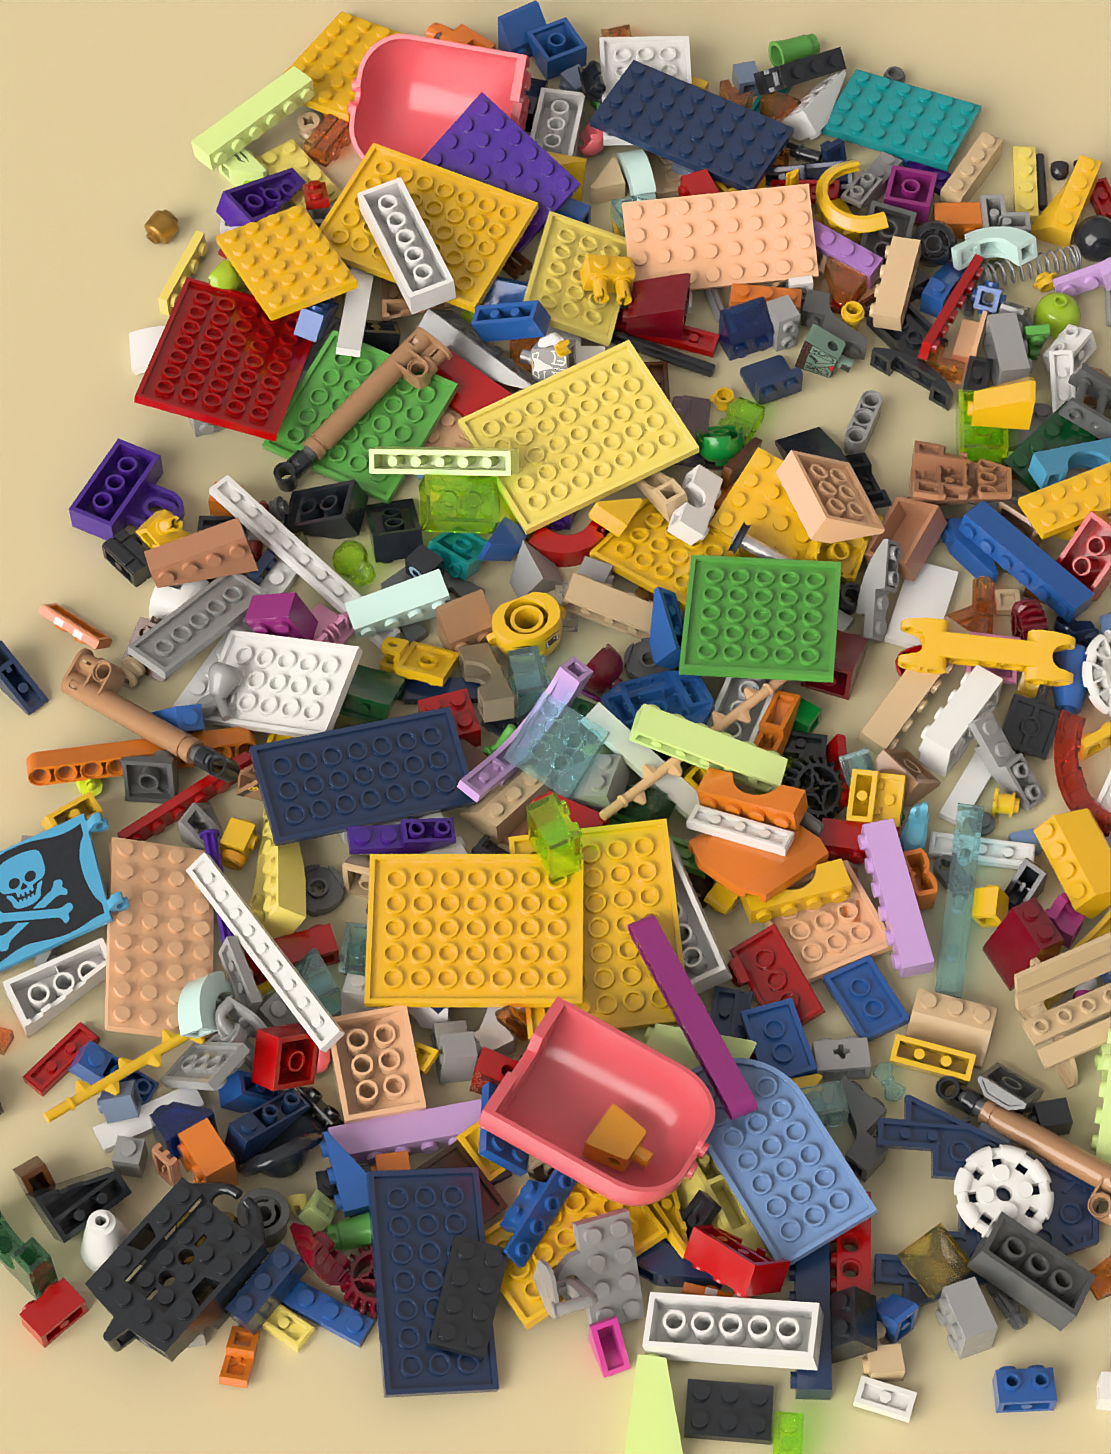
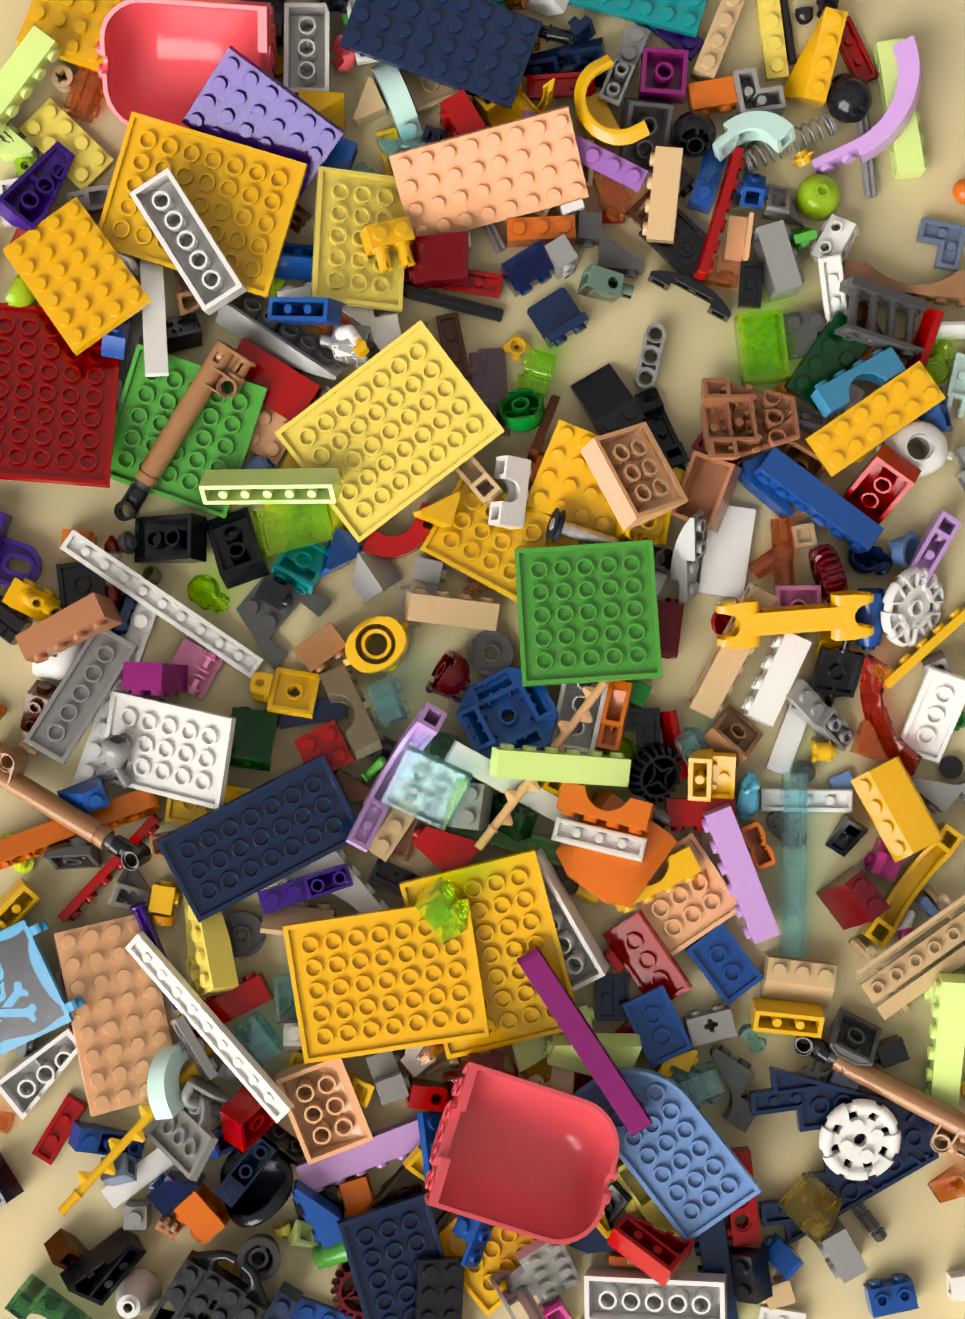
camera: 10 degrees left, 30 degrees up
(315, 195) = (88, 176): red plate -> none
(316, 1253) = (312, 1291): dark red slope -> none
(398, 604) = (258, 645): light aqua wedge -> none
(618, 1141) = (539, 1160): light orange torso -> none
(666, 629) = (503, 629): blue slope -> none
(852, 314) = (626, 230): yellow cone -> none
(989, 906) = (820, 860): yellow brick -> none
(1004, 405) = (785, 332): yellow slope -> none
(1031, 1271) = (889, 1202): dark grey slope -> none
(1055, 800) = (867, 744): none -> clear orange slope

